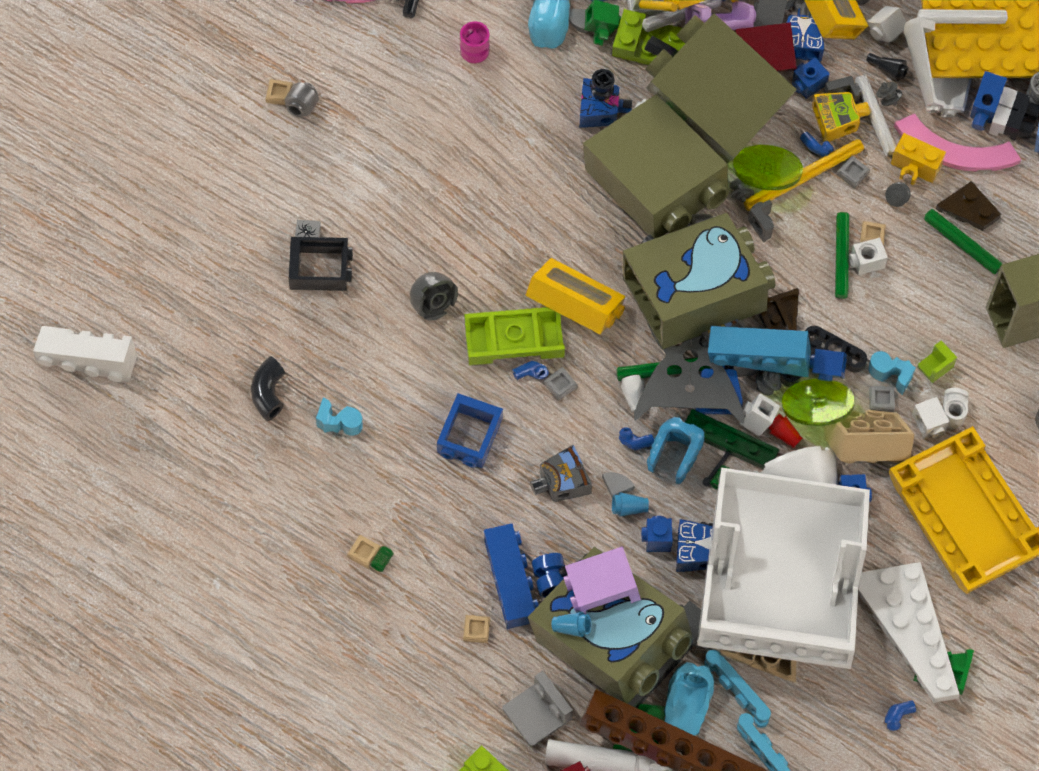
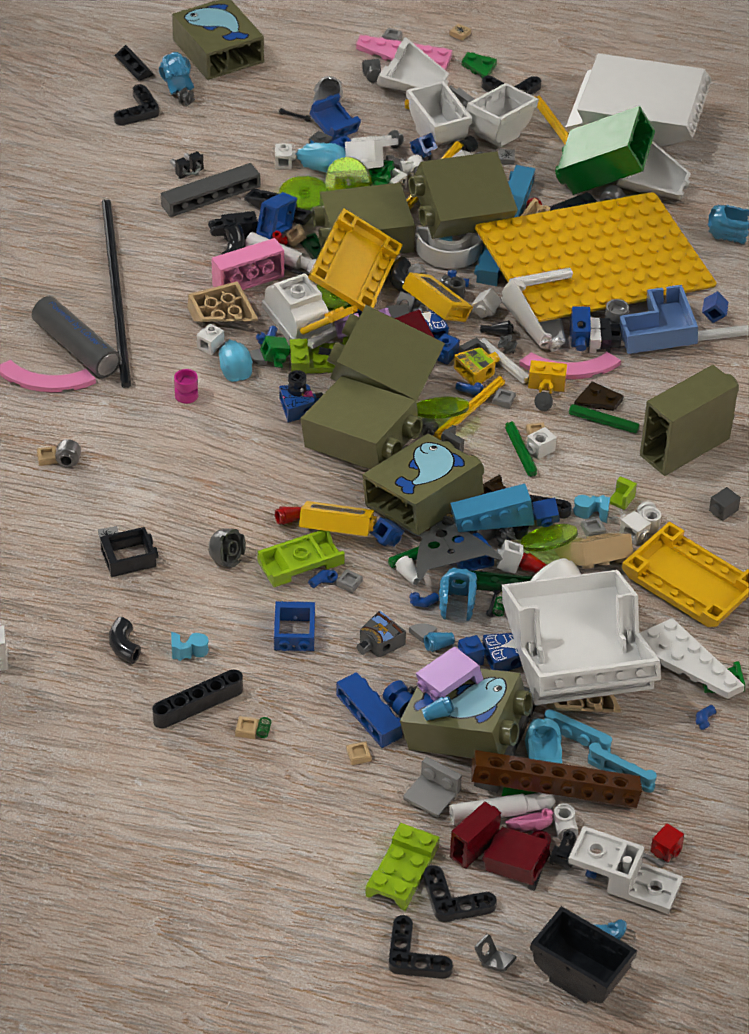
camera: 20 degrees left, 20 degrees down
(329, 487) = (197, 698): none -> black beam
(523, 267) = (287, 514): none -> red cone
(628, 332) = (387, 532): none -> blue brick

